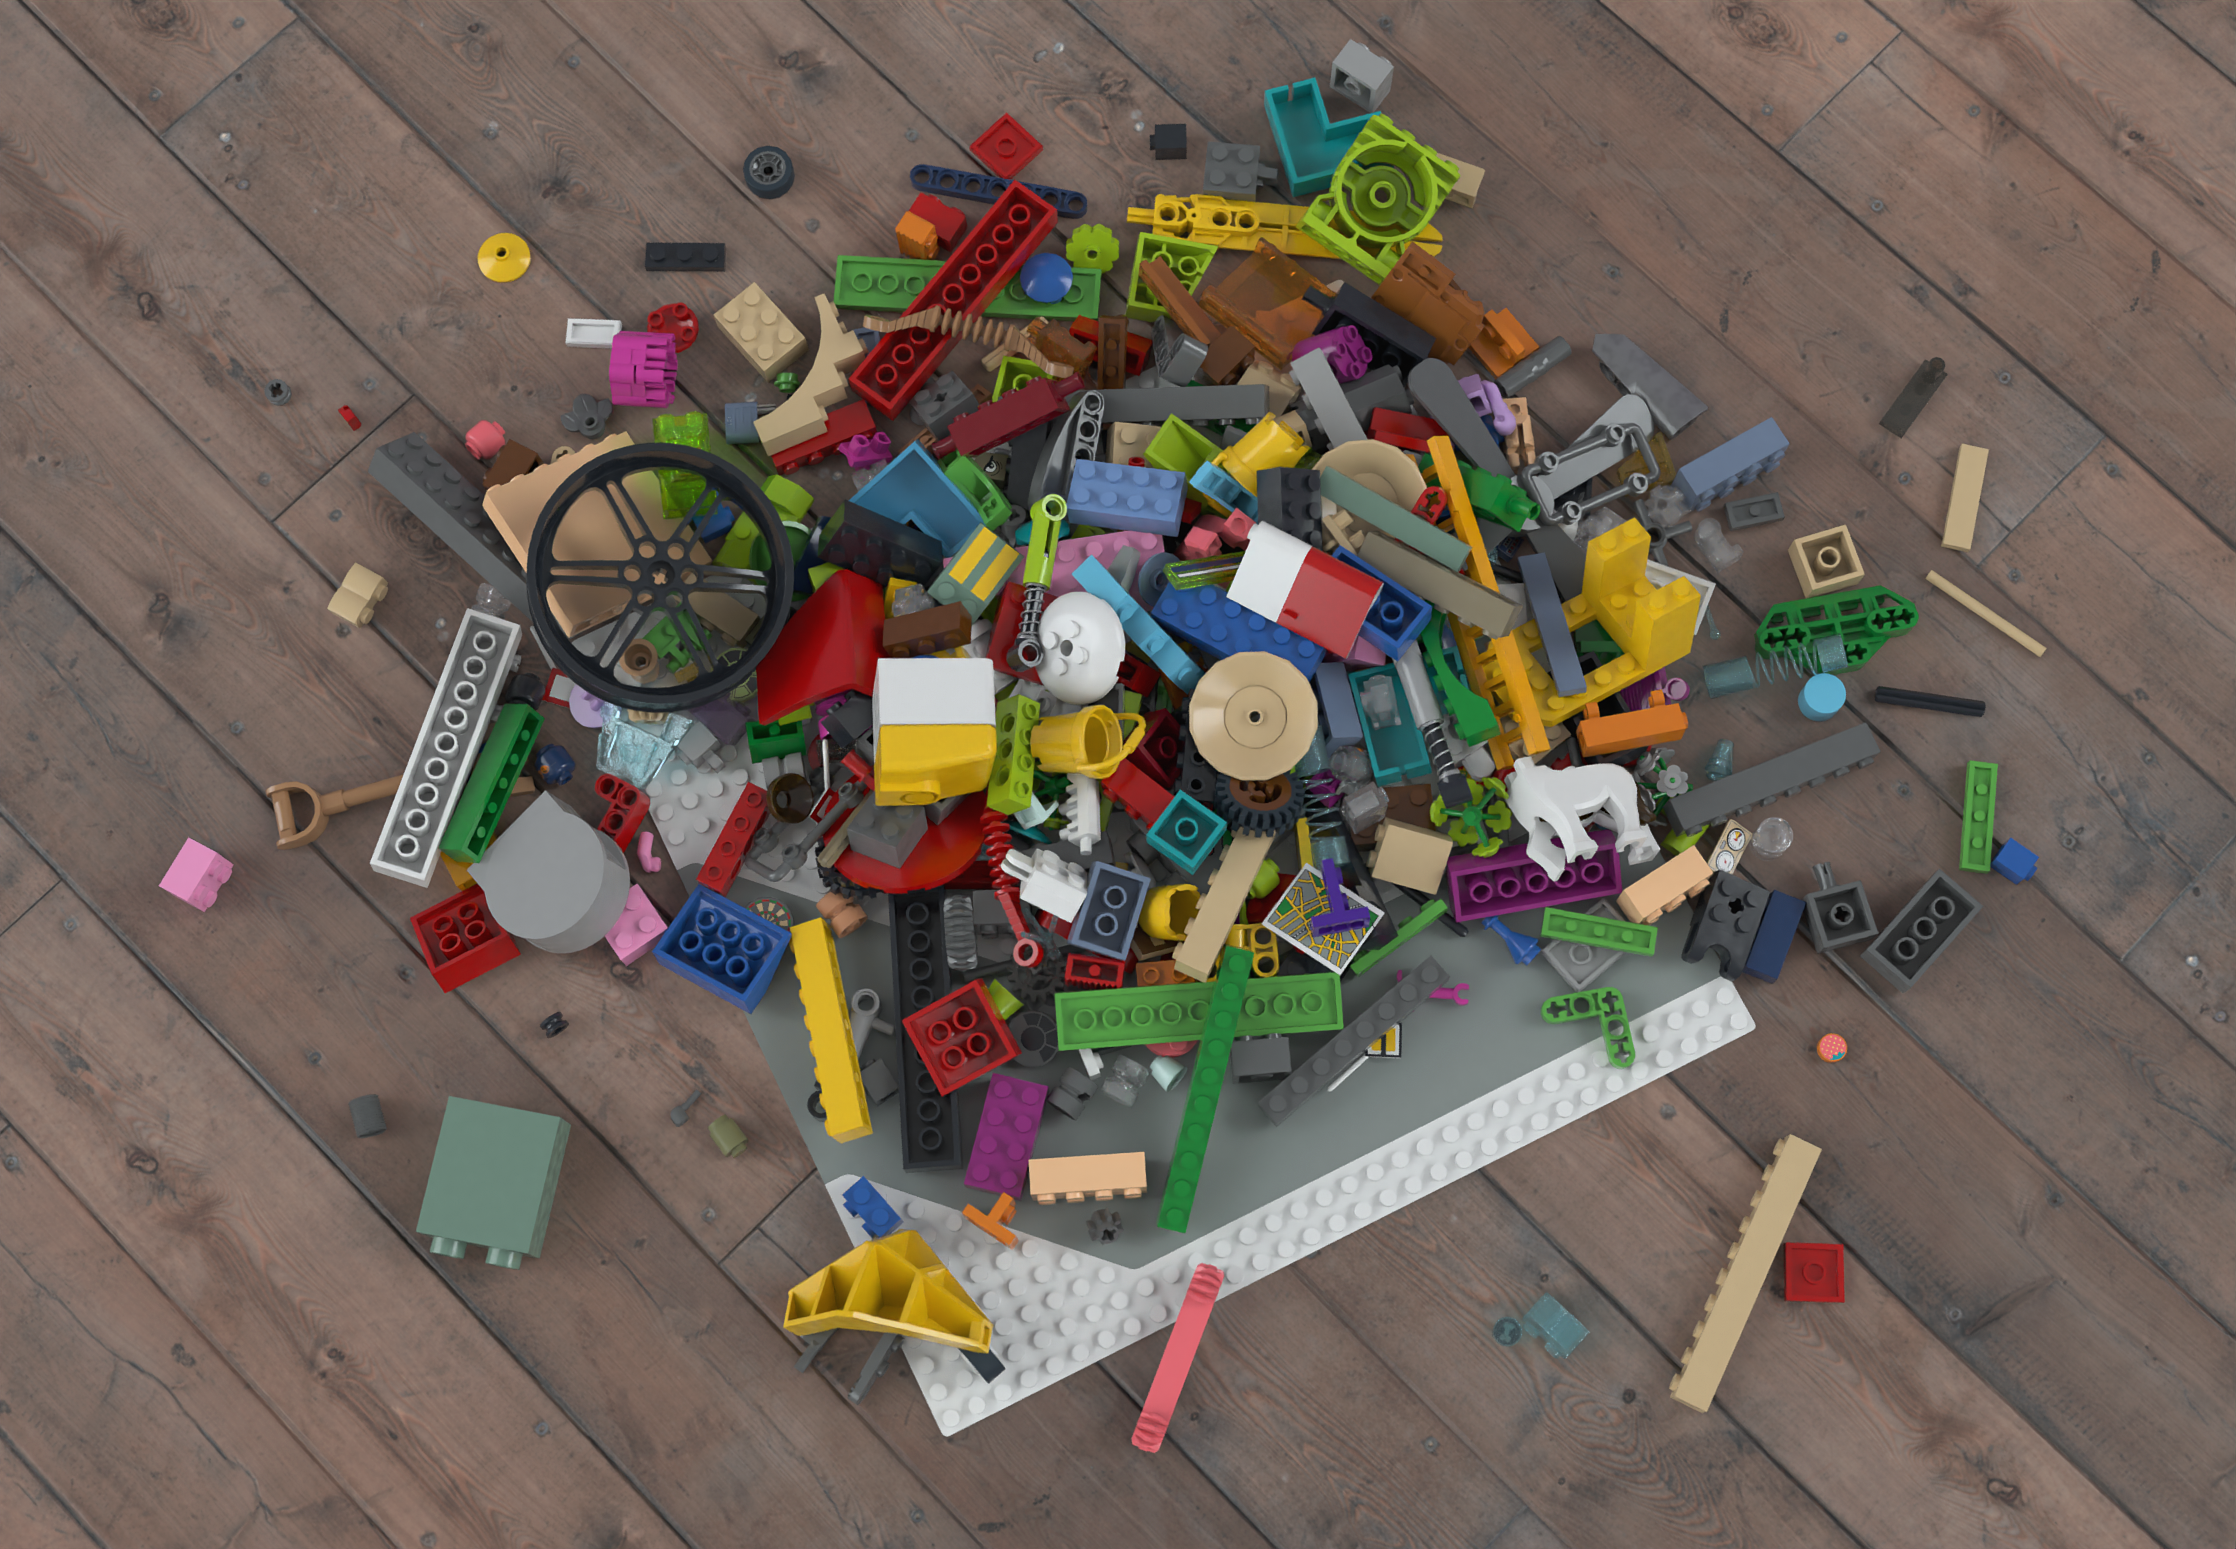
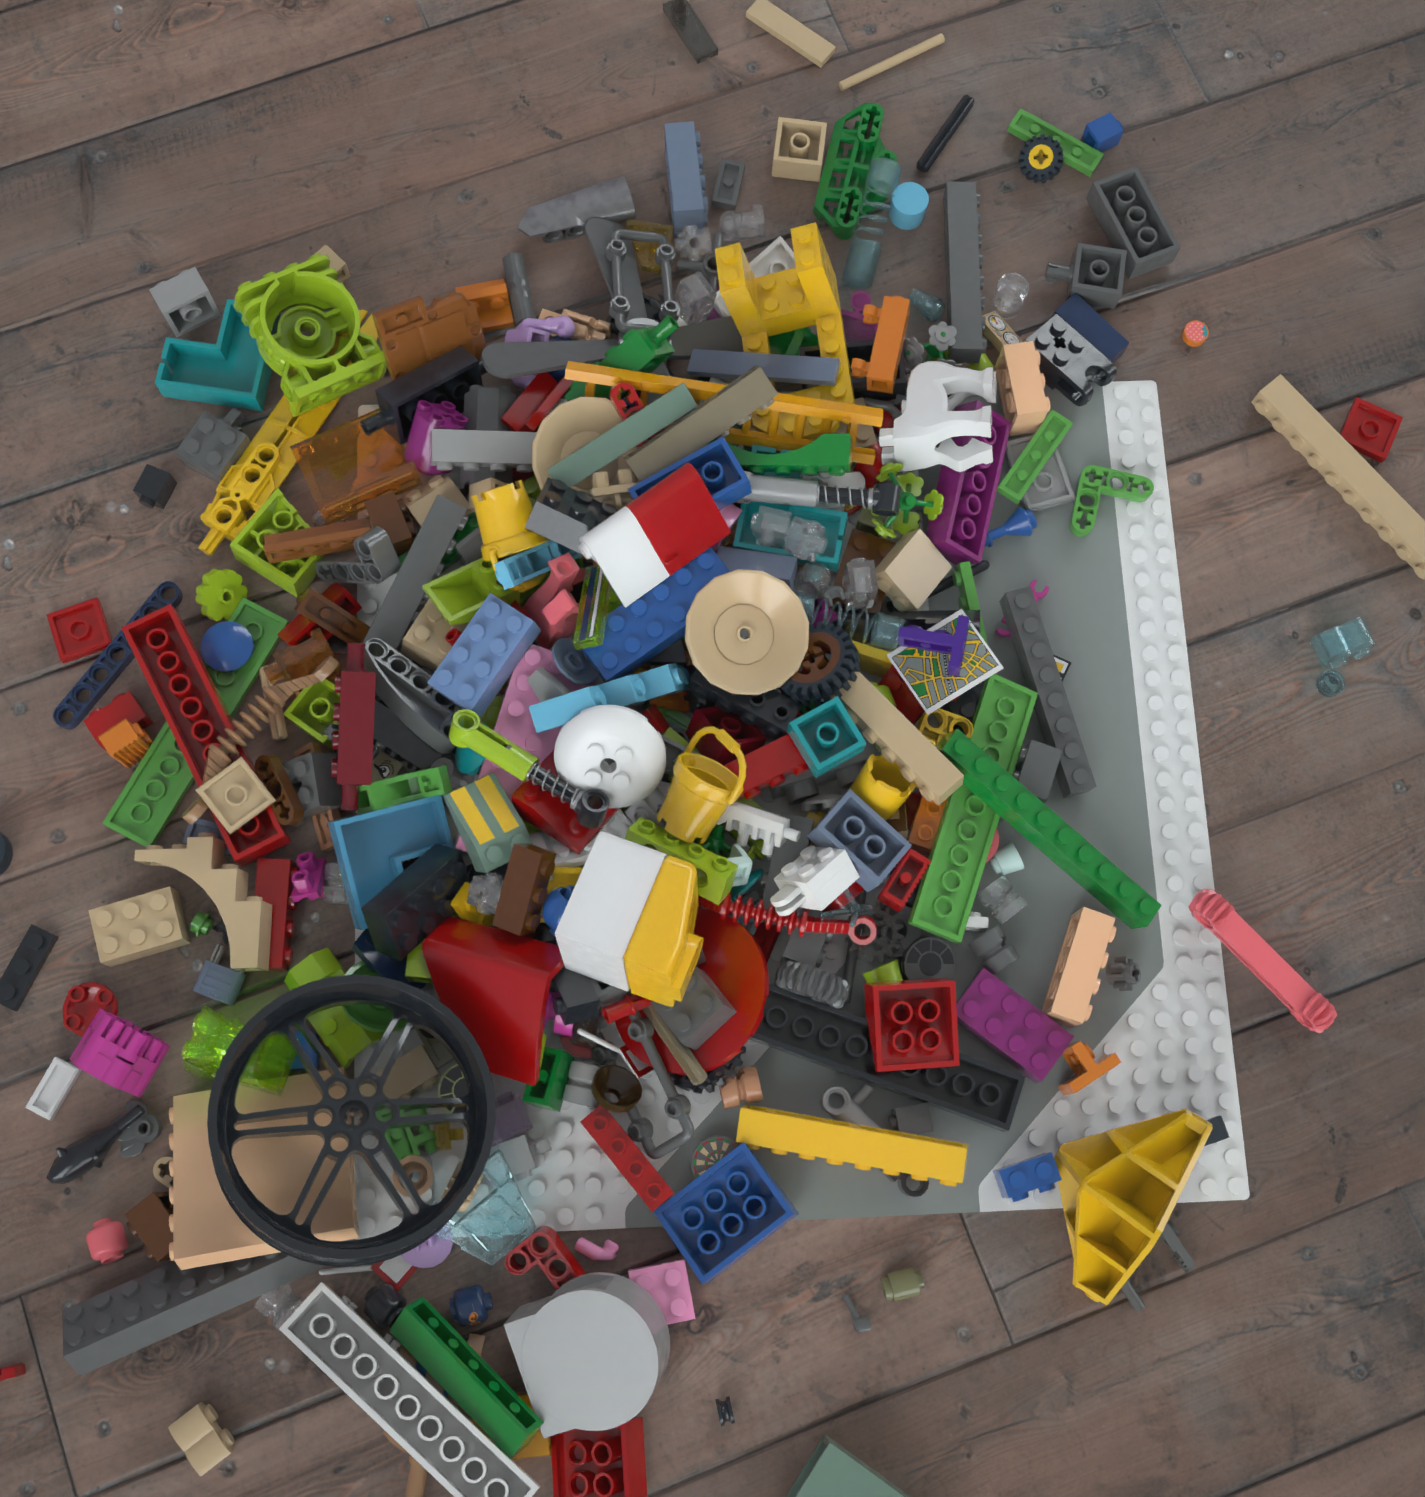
camera: 75 degrees left, 0 degrees up
(553, 388) = (89, 1151): none -> black piece
(904, 349) = (235, 795): none -> tan tile
(918, 395) = (287, 806): none -> reddish brown beam
(1380, 734) = (805, 539): none -> clear brick
(1953, 815) = (1041, 168): none -> black wheel

